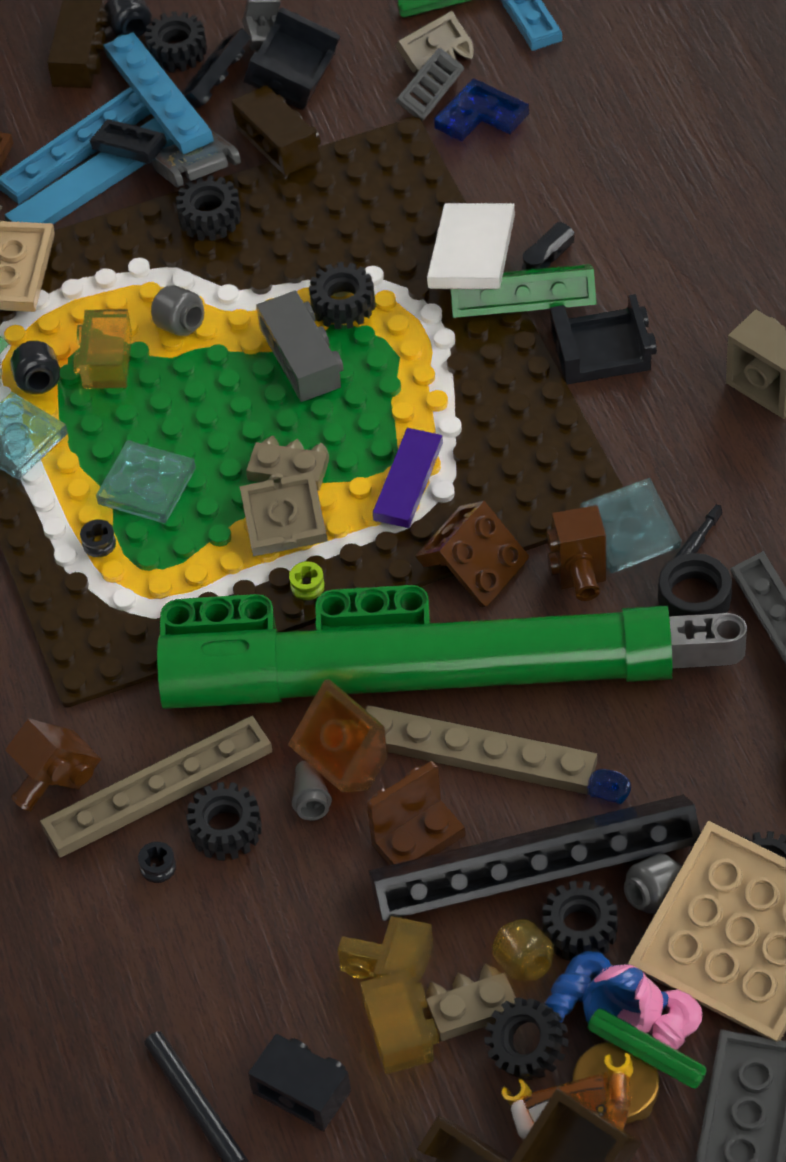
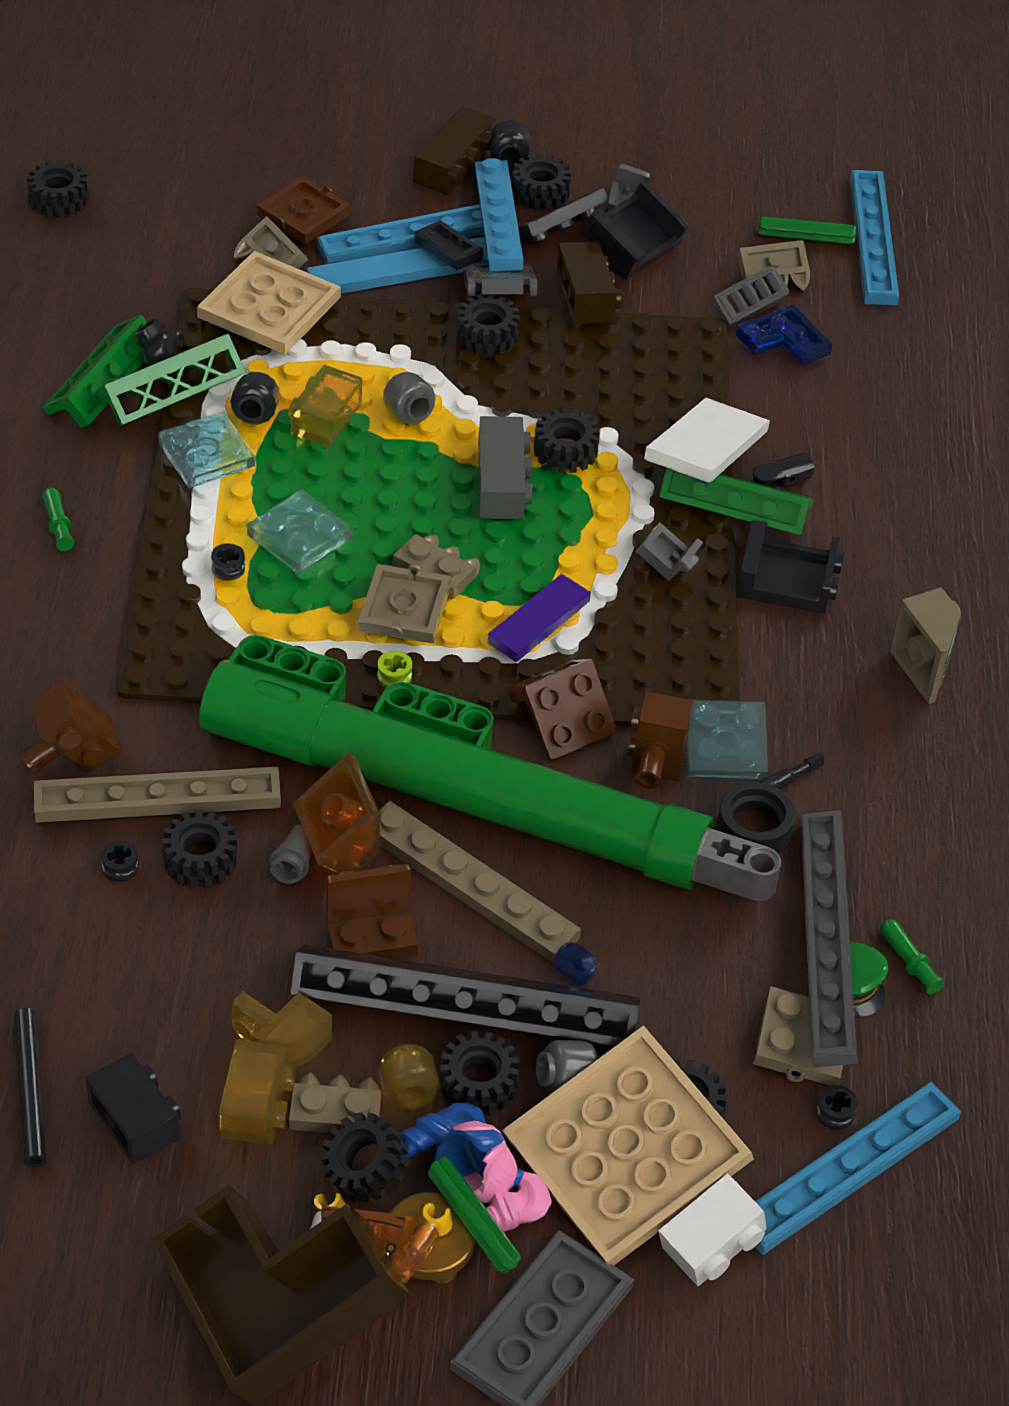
camera: 15 degrees right, 5 degrees down
(492, 369) = (668, 553): none -> dark grey bracket

